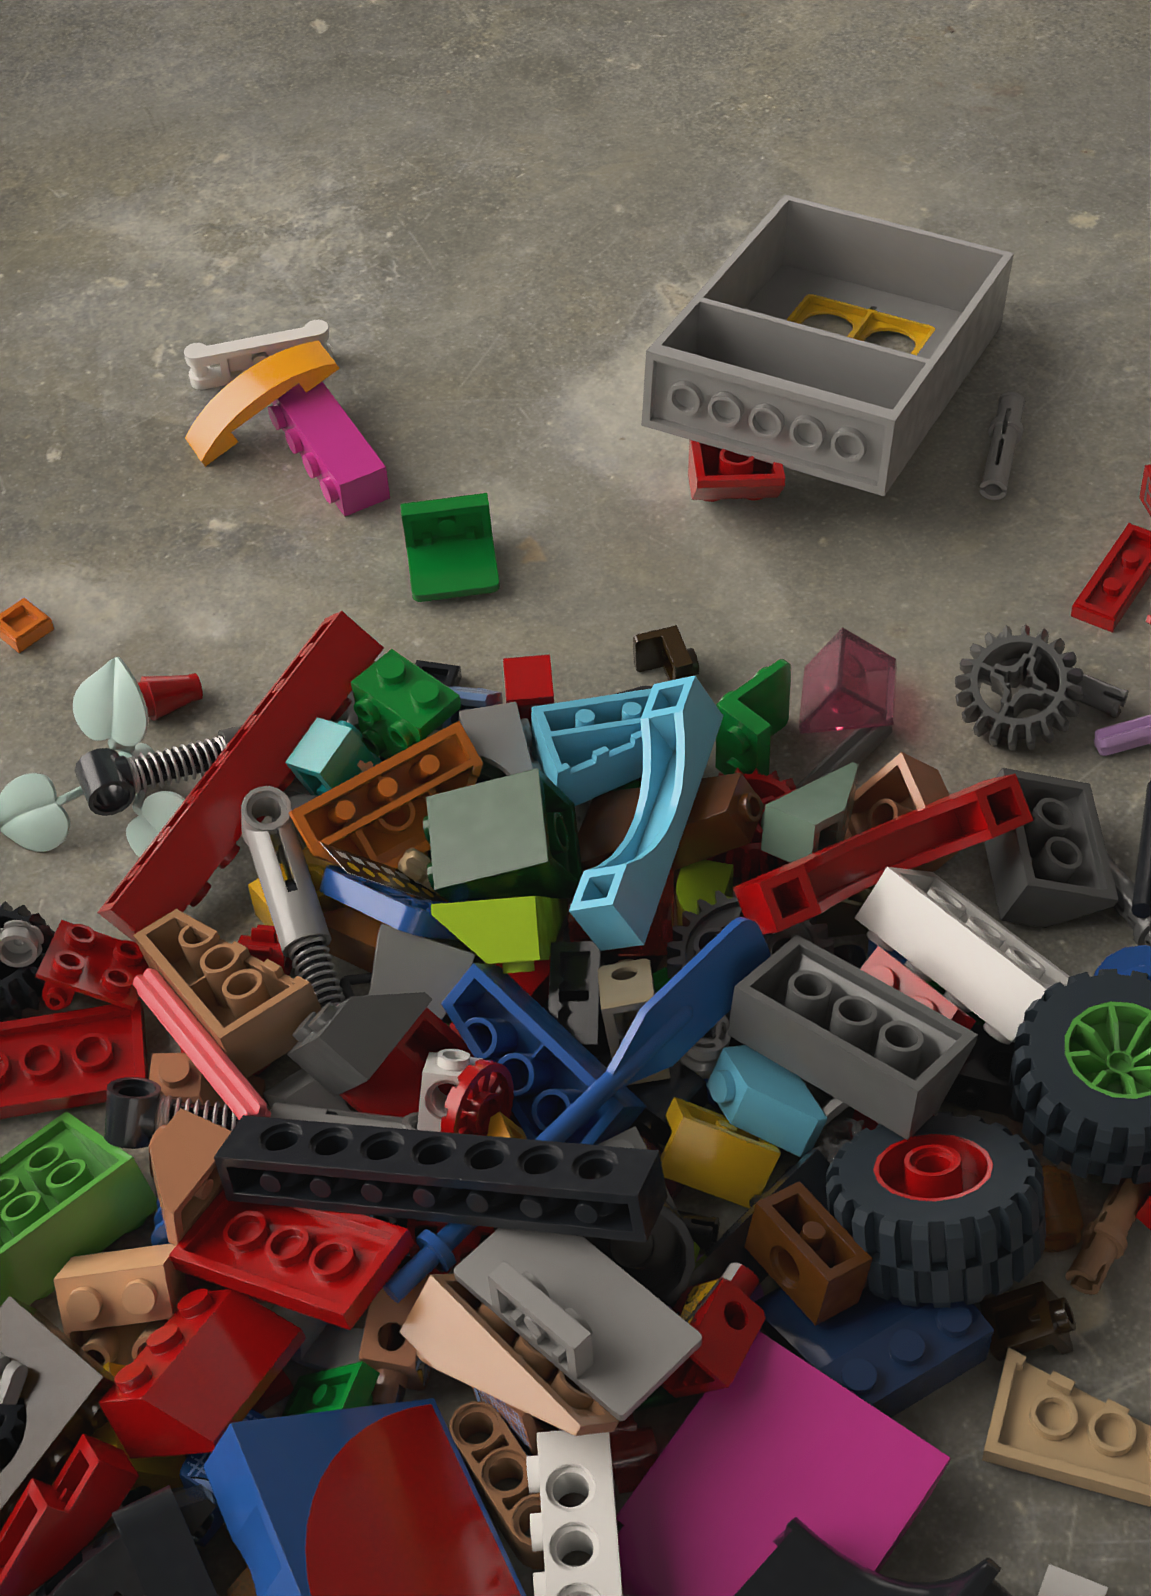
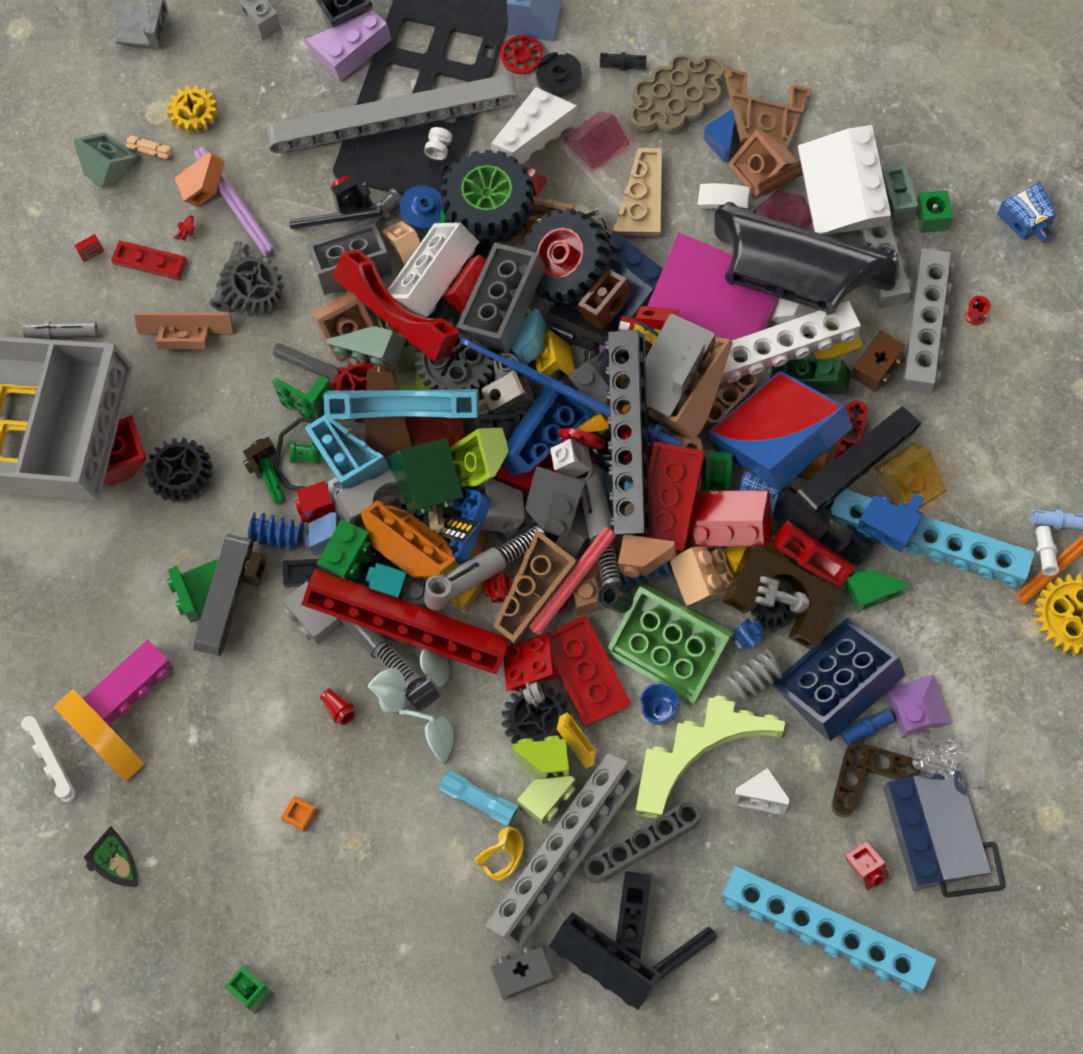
camera: 105 degrees left, 20 degrees up
(65, 396) = (112, 859): none -> shield
(424, 570) = (223, 595): none -> dark grey beam
(454, 616) = (254, 569): none -> dark brown bracket
(523, 634) = (274, 532): none -> blue piece
(618, 675) = (271, 481): none -> green axle
(681, 560) = (164, 459): none -> black gear
(848, 686) = (260, 364): clear pink slope -> none
(952, 594) = (183, 329): none -> nougat bracket
(1068, 939) = (402, 240): none -> light nougat slope

